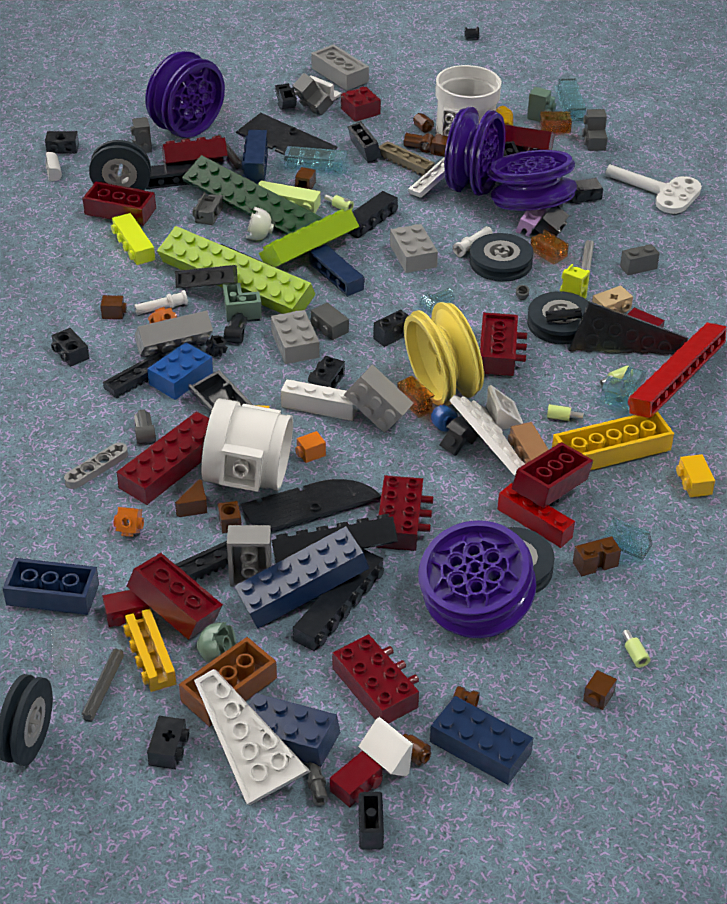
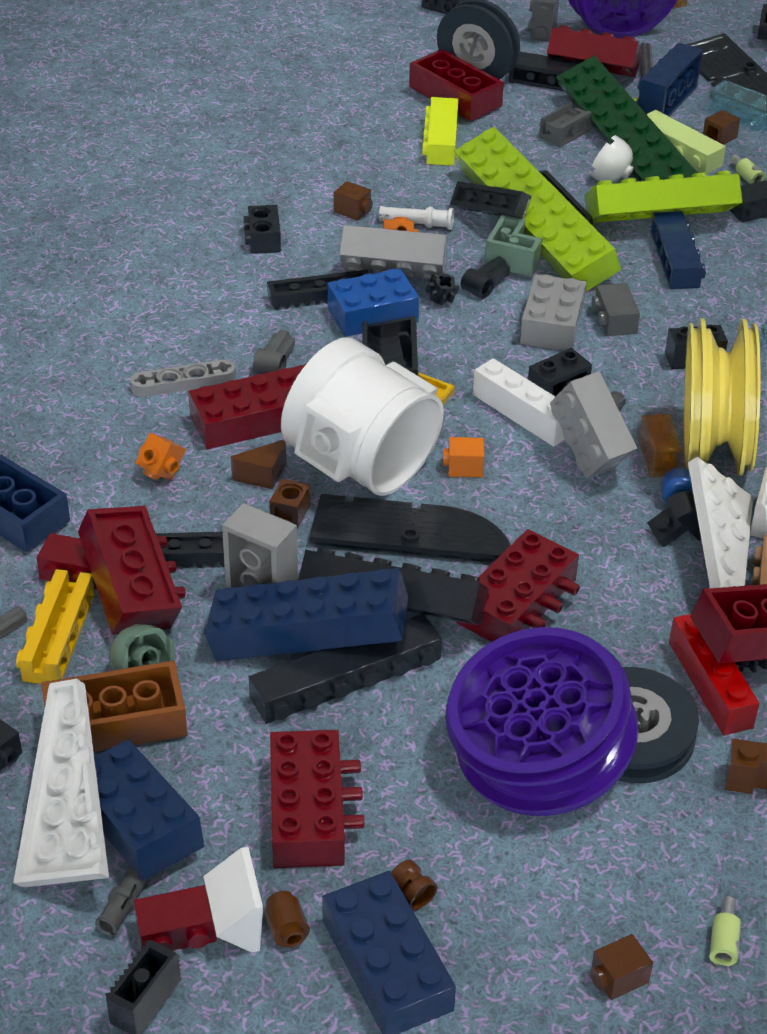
camera: 30 degrees right, 0 degrees up
(53, 166) = (413, 21): white brick -> none

